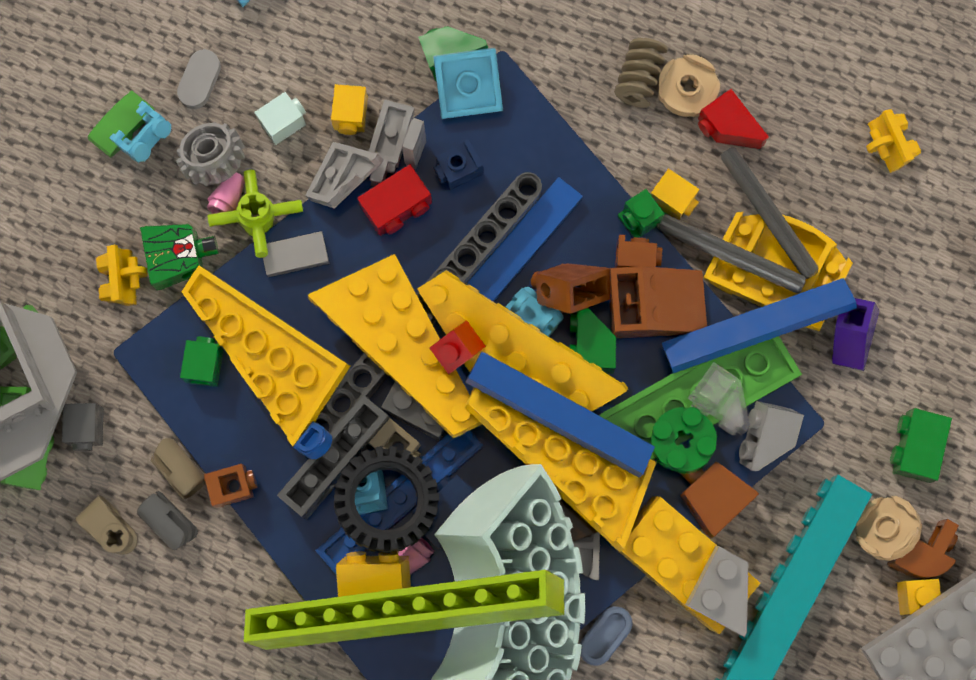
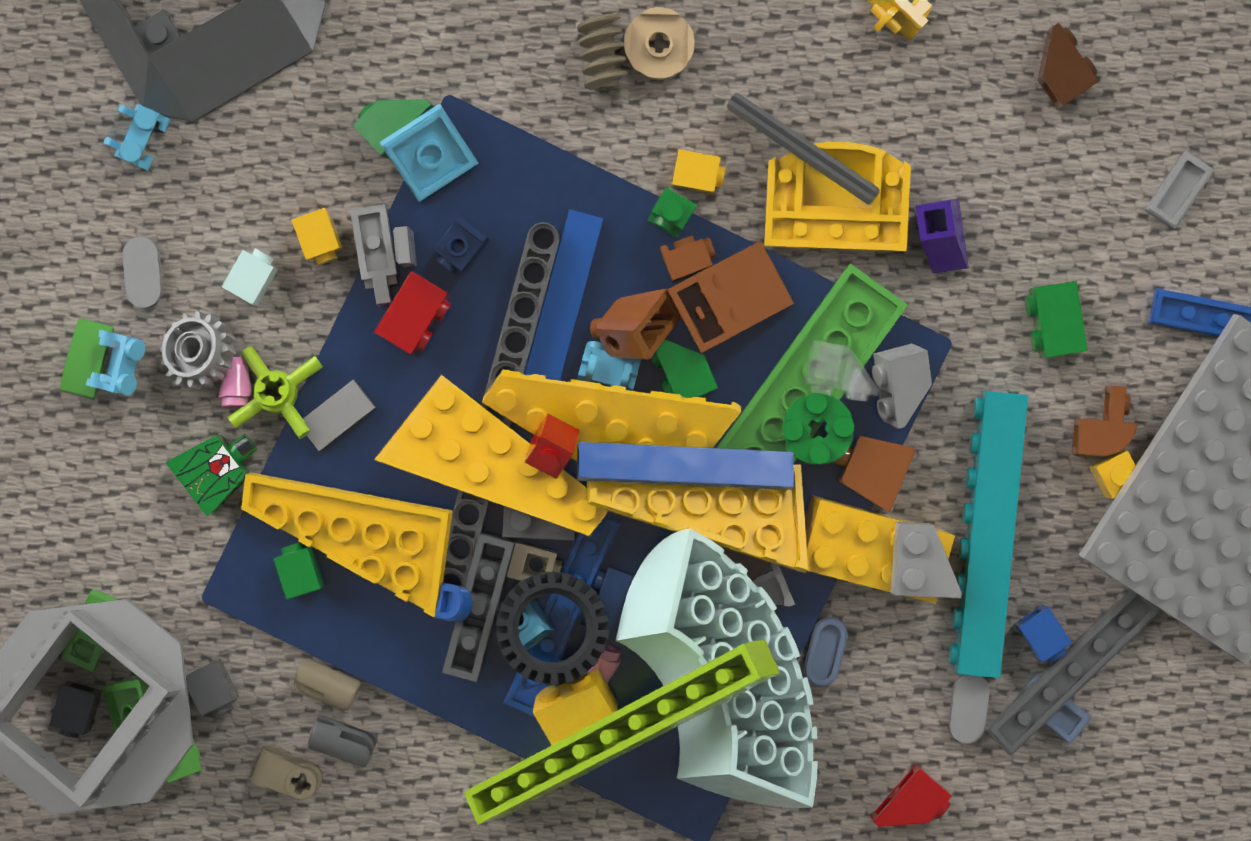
camera: 25 degrees left, 10 degrees up
(123, 275) = (172, 518): yellow hips -> none
(218, 485) = (380, 689): dark orange brick -> none
(341, 173) = (344, 311): light grey wing -> none
(731, 123) = (721, 65): red slope -> none
(732, 254) = (783, 210): dark grey axle -> none
(759, 325) = (843, 276): blue tile -> none
(888, 528) = (1058, 420): tan tile -> none

